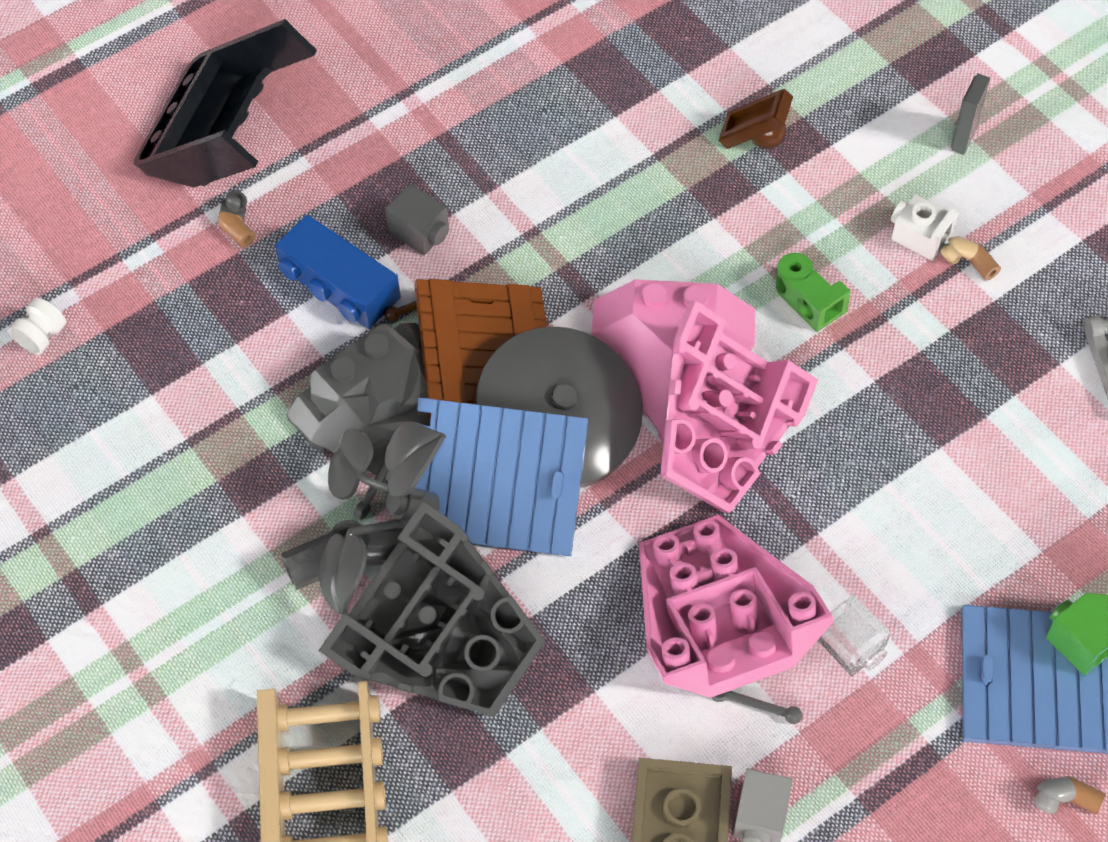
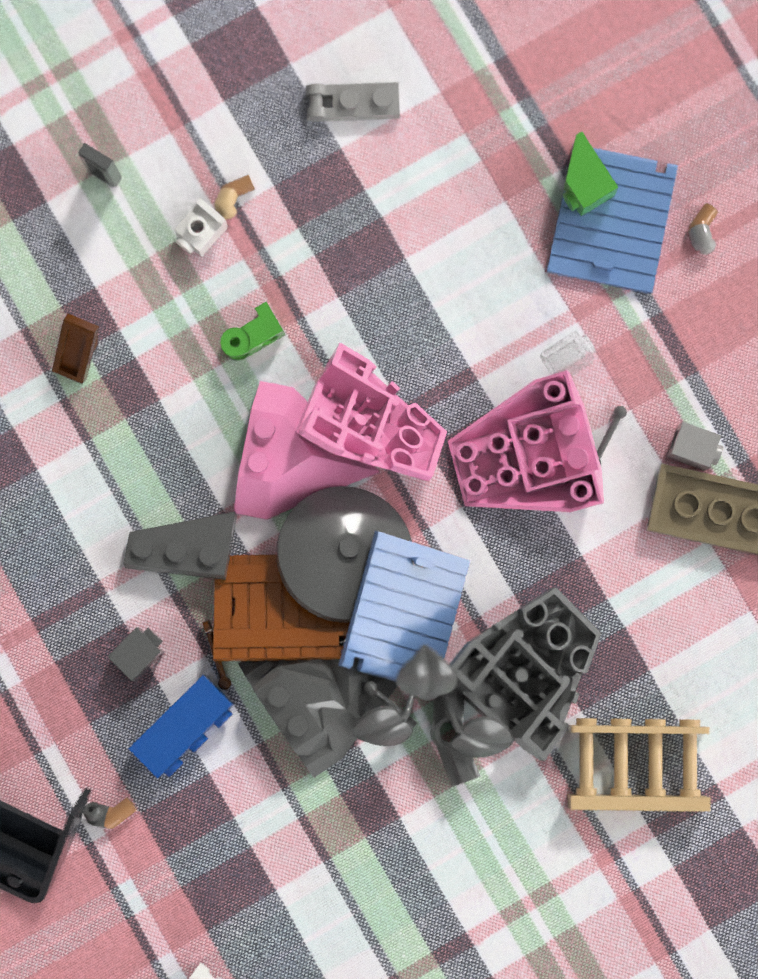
camera: 85 degrees left, 25 degrees up
(545, 255) = (184, 548): none -> dark grey wing

